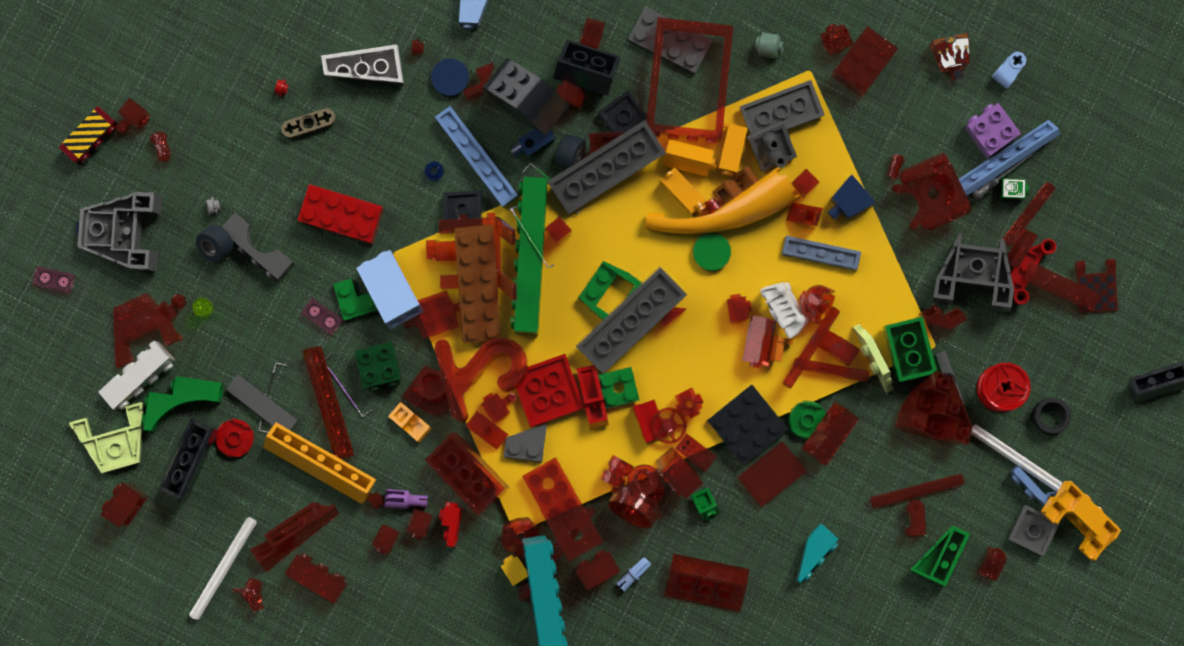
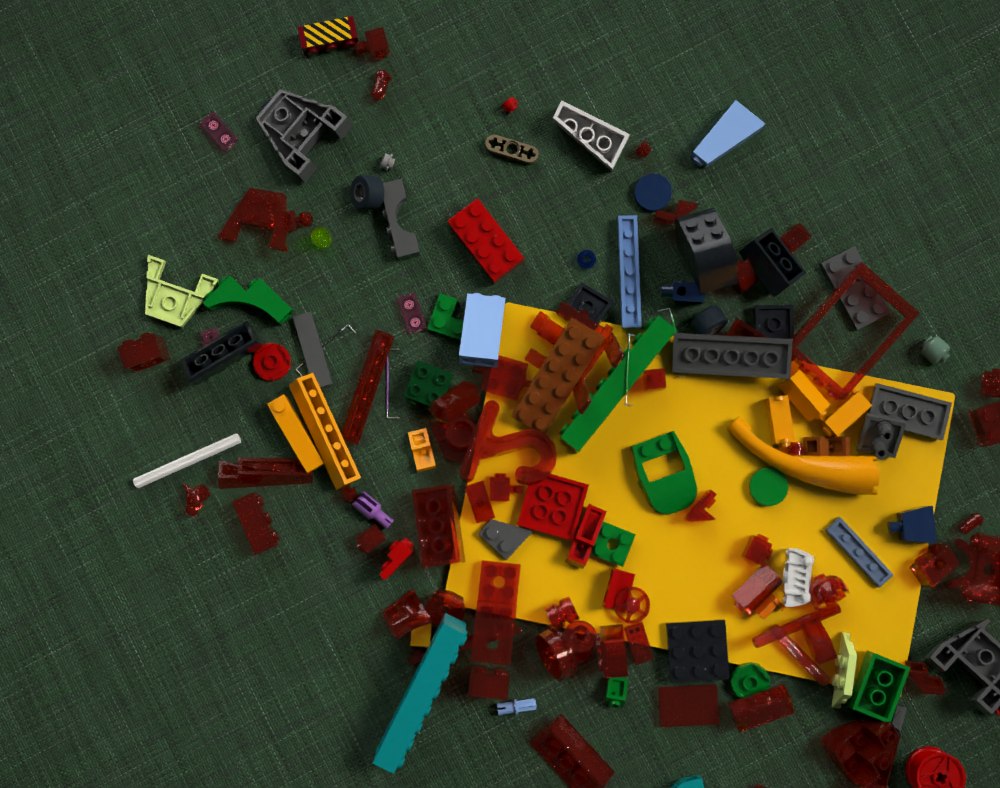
camera: 35 degrees right, 0 degrees up
(137, 376) = (229, 256): white wedge -> none
(164, 454) = (207, 333): none -> clear pink plate
(296, 481) = (295, 433): none -> light orange slope
(386, 539) = (334, 532): clear red brick -> none
(409, 363) = (455, 402): none -> clear red brick
(492, 563) = (406, 615): none -> clear red plate
(631, 320) = (664, 496): dark grey plate -> none
(689, 395) = (669, 599): clear red brick -> none
(804, 215) = (868, 512): clear red slope -> none
(805, 183) = (888, 485): clear red brick -> none
(894, 212) = (943, 560): none -> clear red brick

